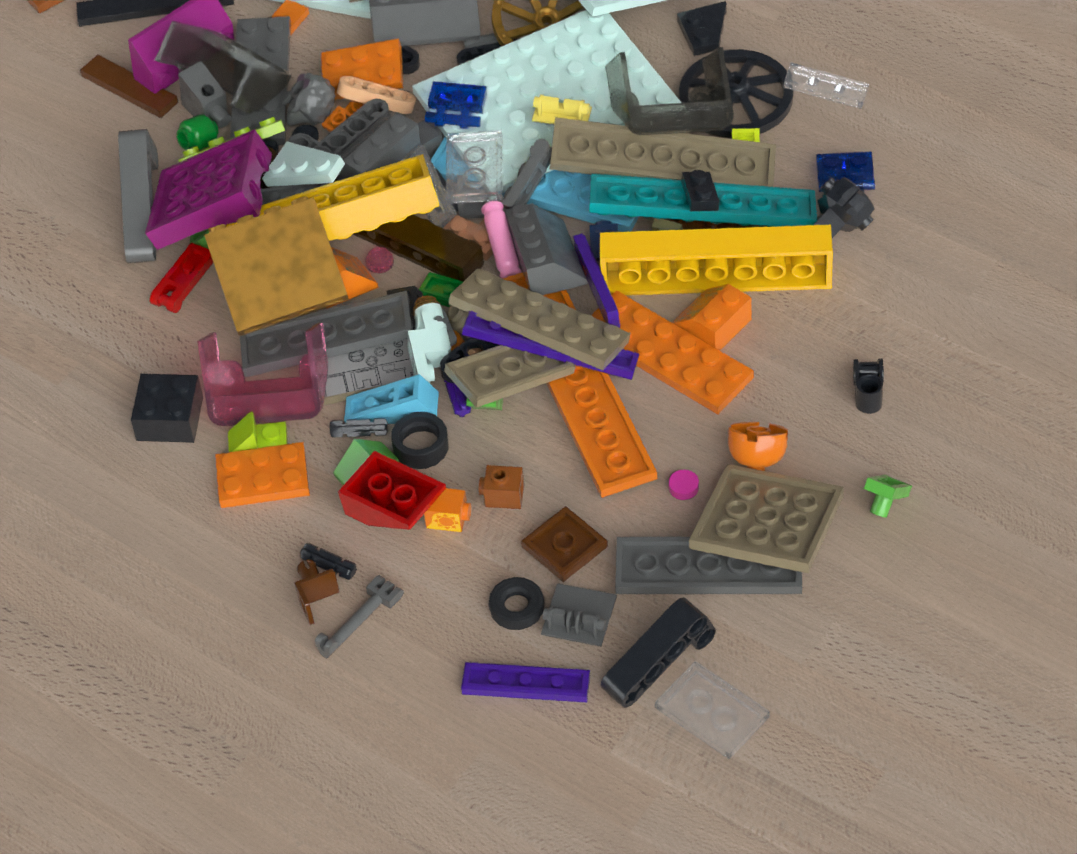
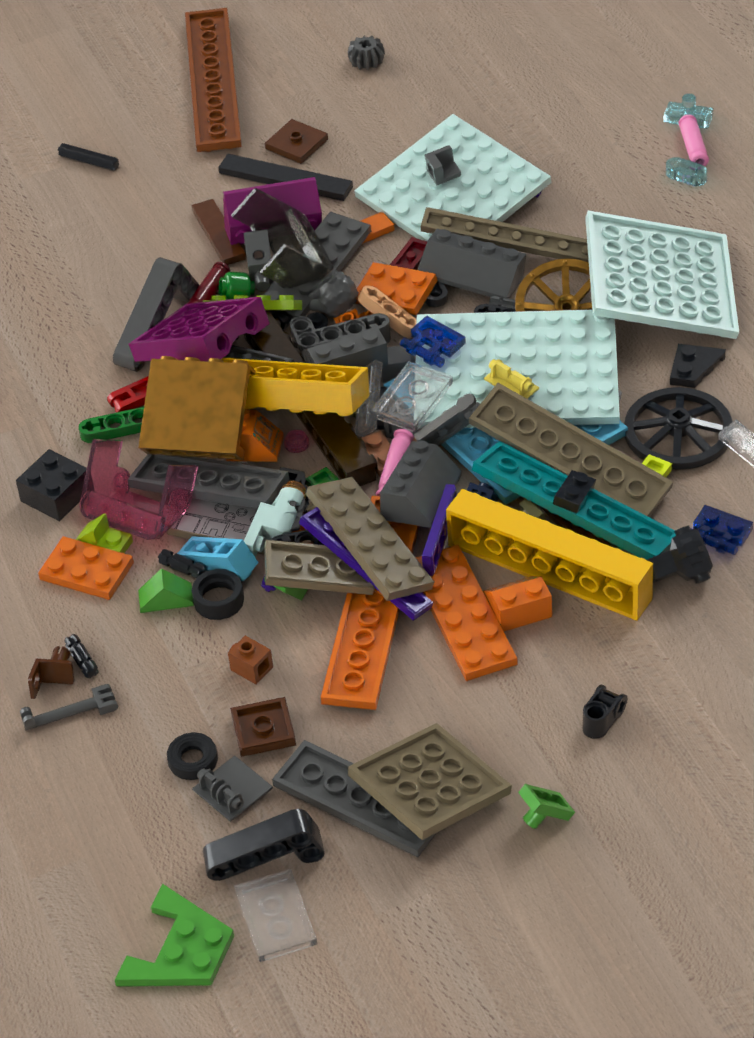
camera: 30 degrees right, 5 degrees down
(166, 141) = (210, 284): none -> dark red axle
(185, 312) = (125, 418): none -> green beam
(302, 166) = (279, 341): light aqua wing -> none
(352, 29) = (410, 254): none -> dark red plate
(388, 493) = (154, 621): red slope -> none
(448, 511) = (194, 656): orange brick -> none
(525, 682) = (153, 822): dark purple tile -> none
(658, 779) = (190, 951): none -> bright green wing
(683, 484) = (392, 724): dark pink tile -> none
(707, 106) = (628, 433): clear smoke windscreen -> none
(757, 445) = (468, 717): orange cylinder -> none

